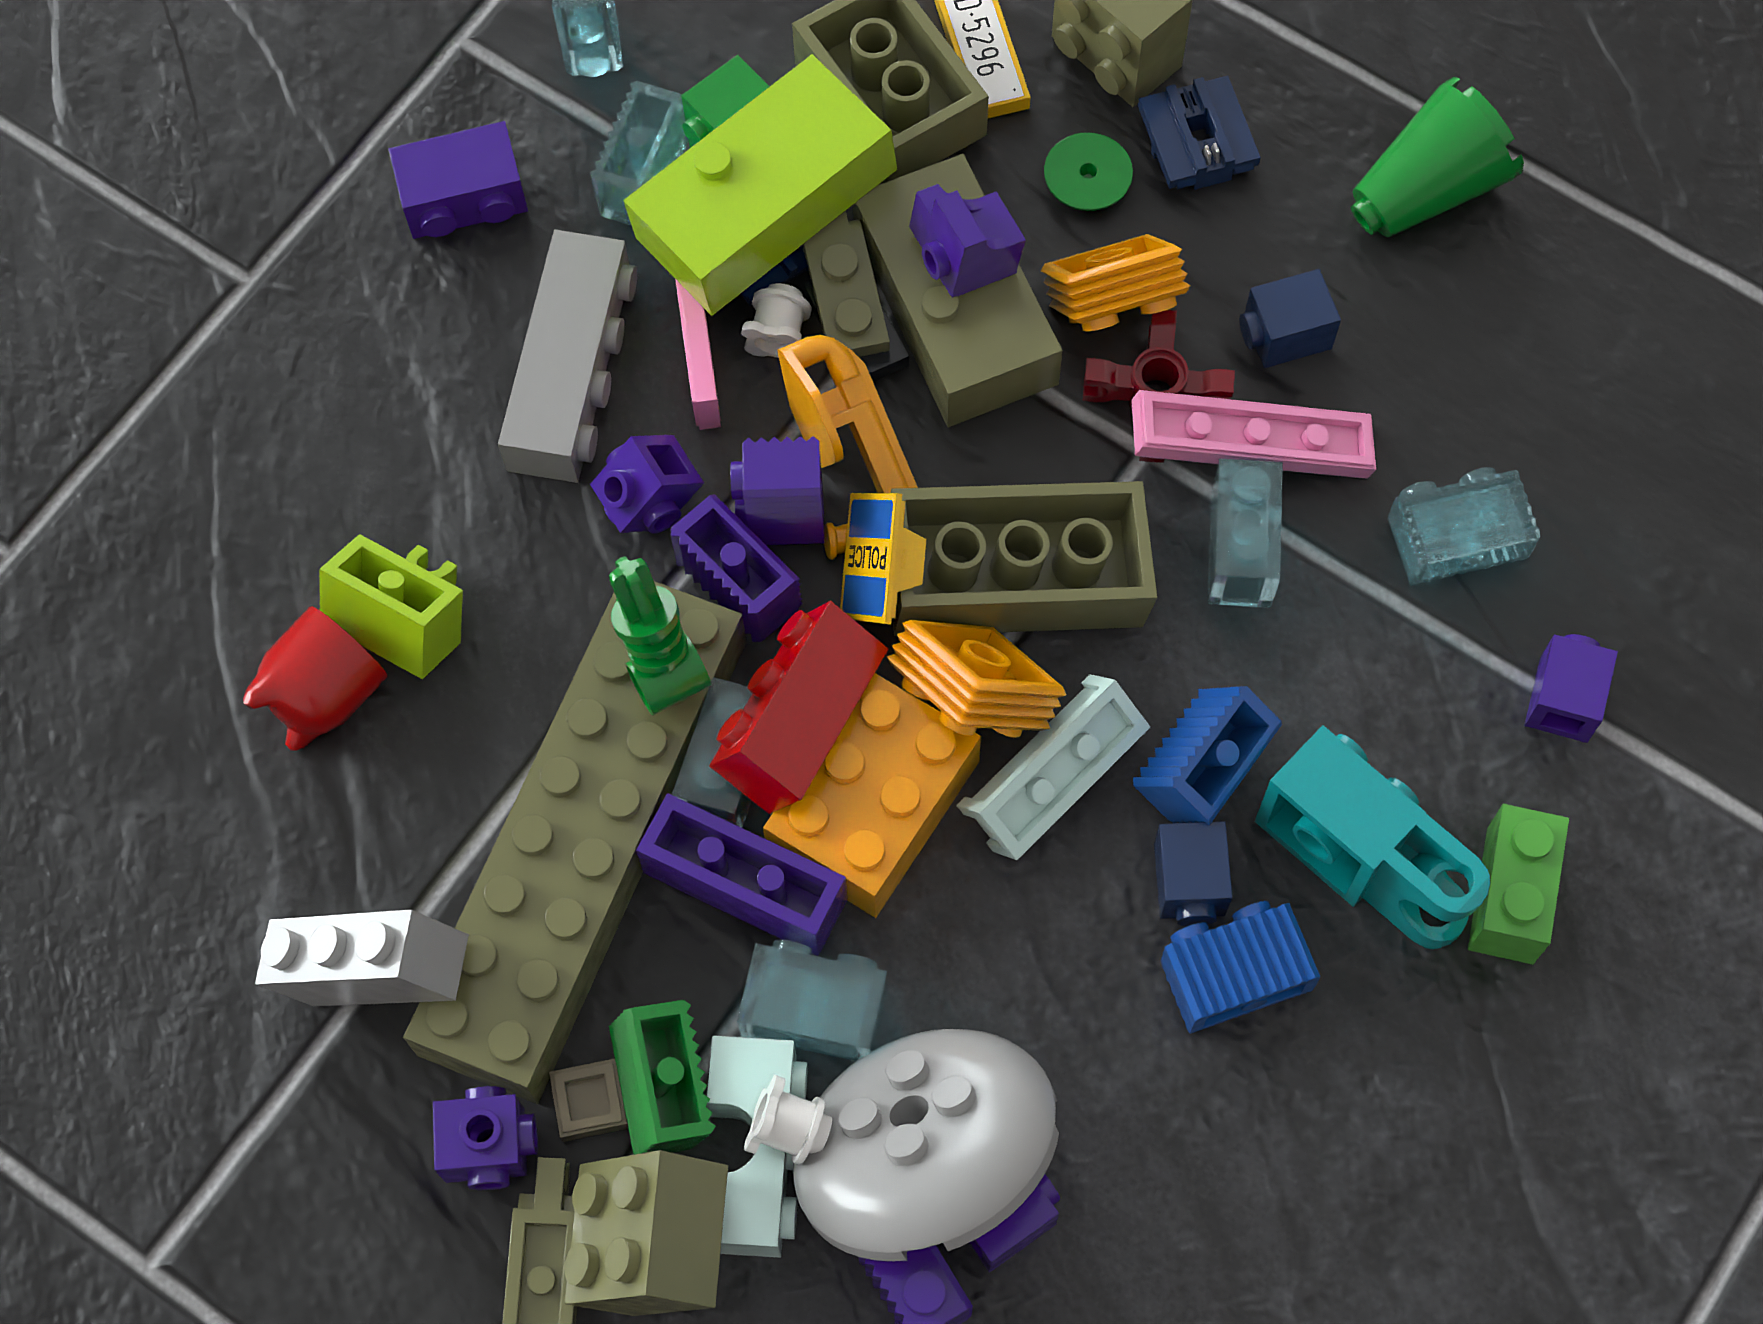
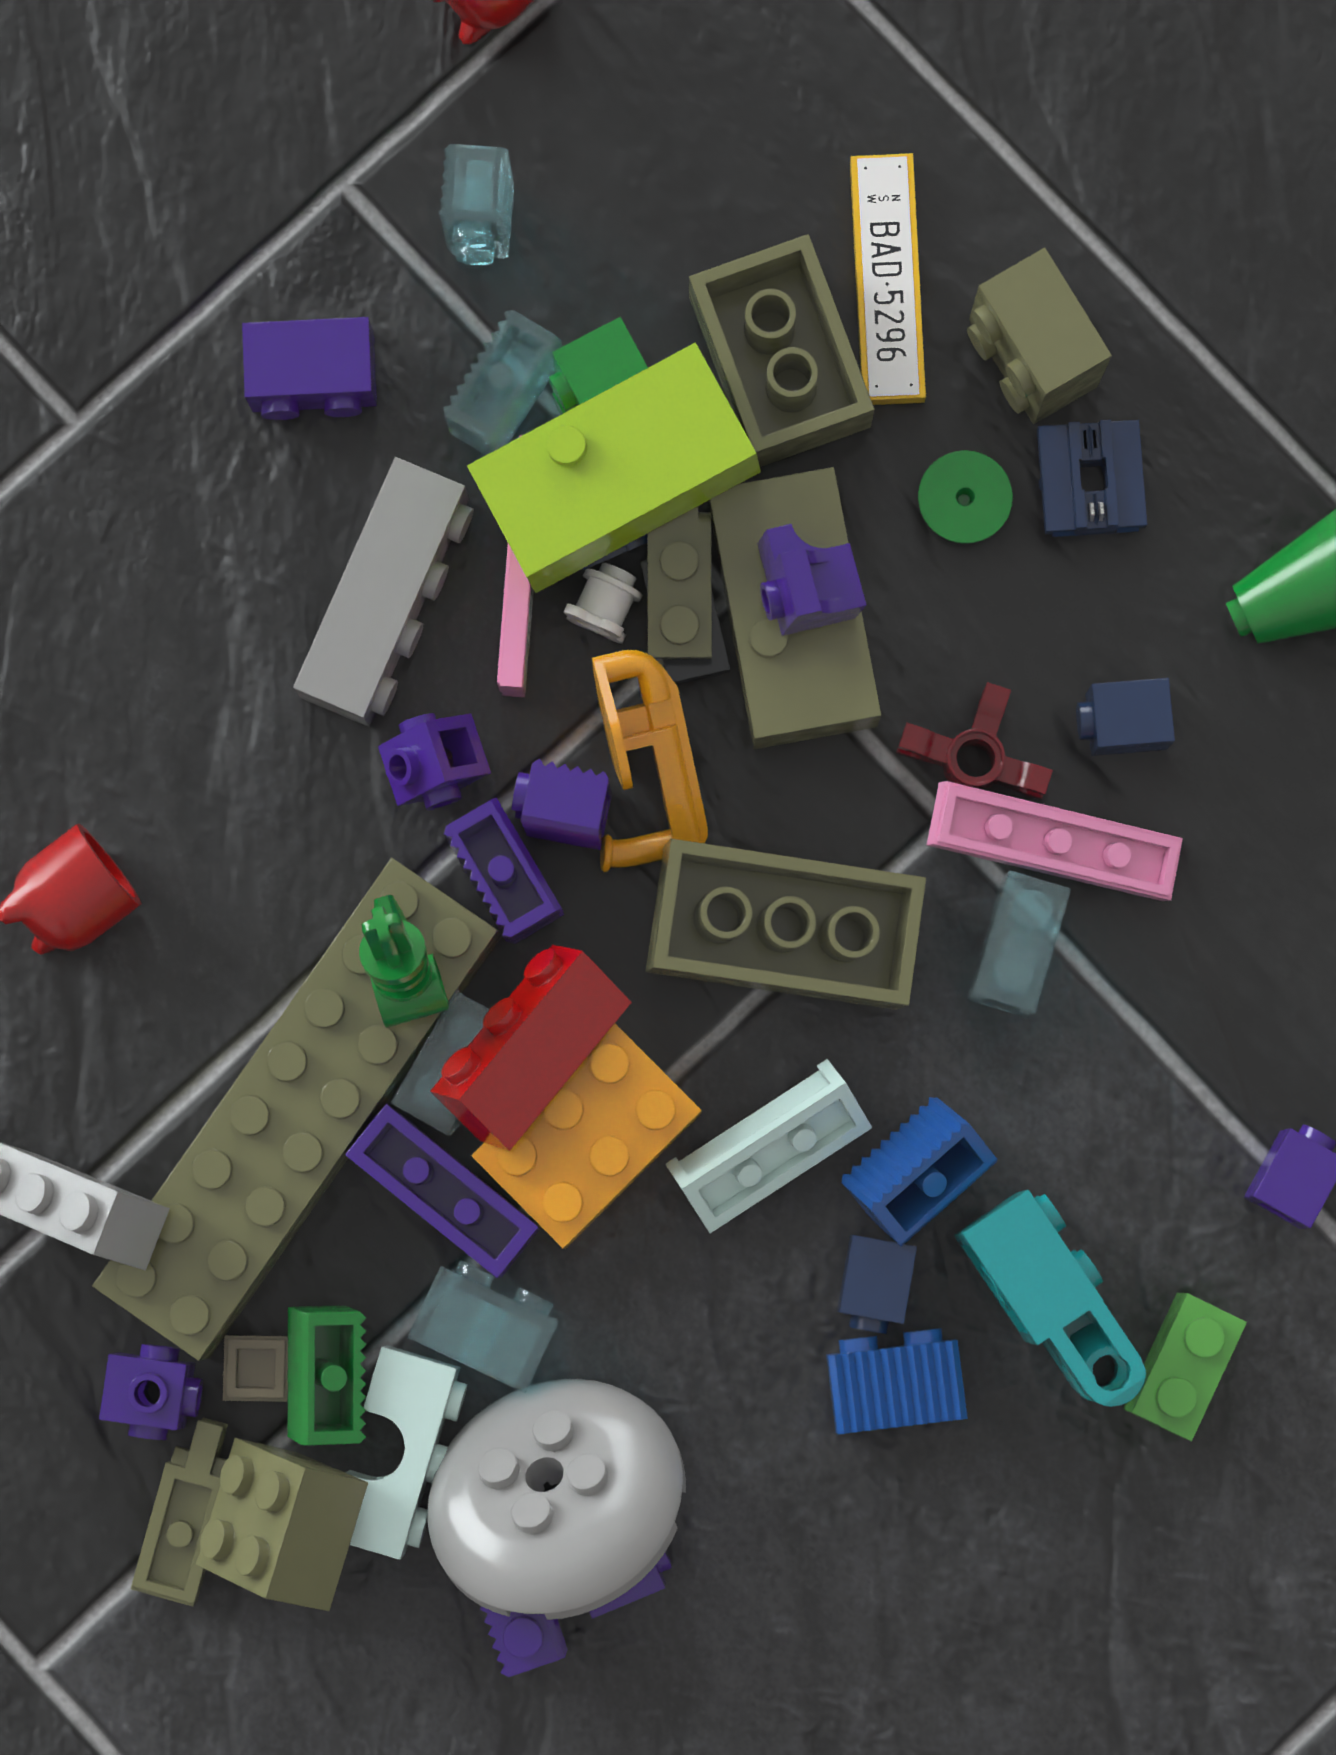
camera: 15 degrees right, 15 degrees up
(394, 603) = (160, 833): lime brick -> none
(788, 1123) = (432, 1454): white brick -> none
(879, 557) = (641, 910): piece -> none
(975, 678) = (710, 1048): light orange brick -> none
(1114, 279) = (956, 643): light orange brick -> none
(1463, 525) = (1239, 982): clear light blue brick -> none

